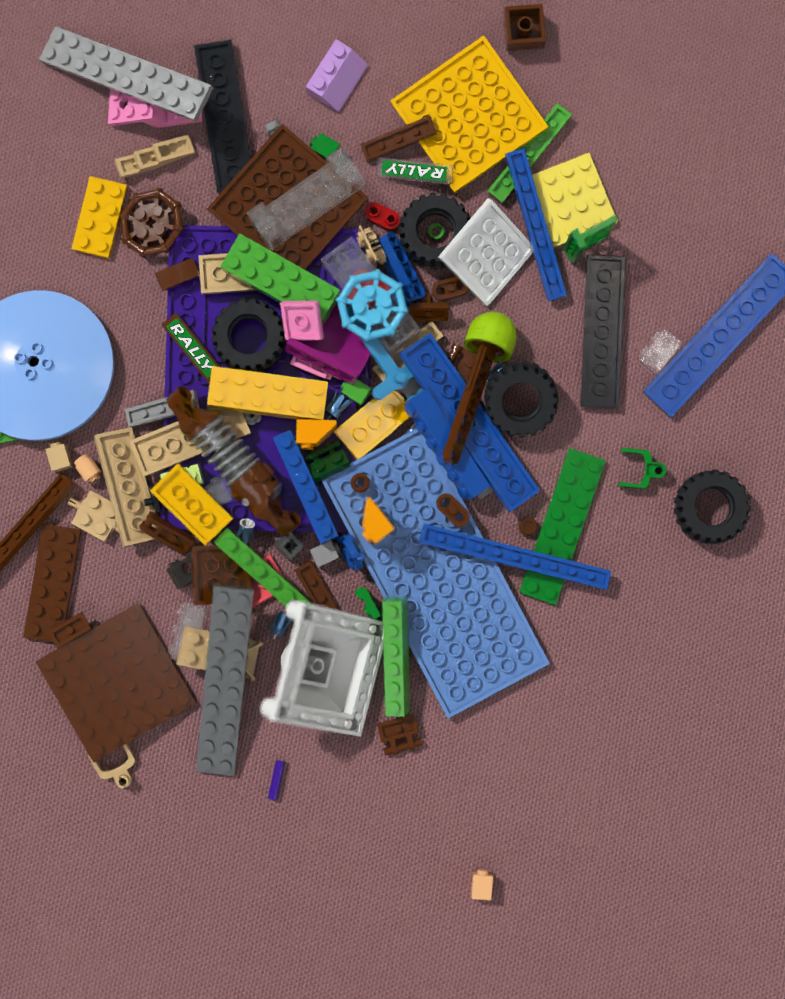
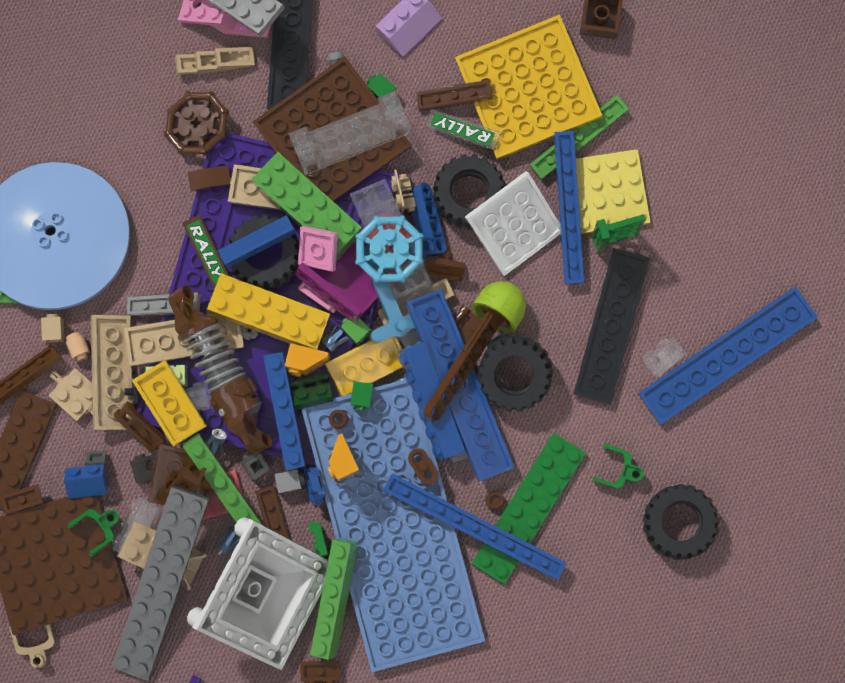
camera: 15 degrees right, 5 degrees down
(99, 217) = (147, 107): yellow plate -> none
(128, 598) = (86, 481): none -> blue brick
(132, 575) = (96, 458): none -> dark grey plate
(154, 634) = (103, 523): none -> green piece
(228, 575) = (188, 479): none -> reddish brown panel
(240, 327) = (256, 242): none -> blue panel
(377, 454) = (361, 395): none -> green brick
(381, 216) = (421, 166): red plate -> none
(434, 225) = (471, 186): bright green axle -> none
(449, 286) = (471, 251): reddish brown plate -> none

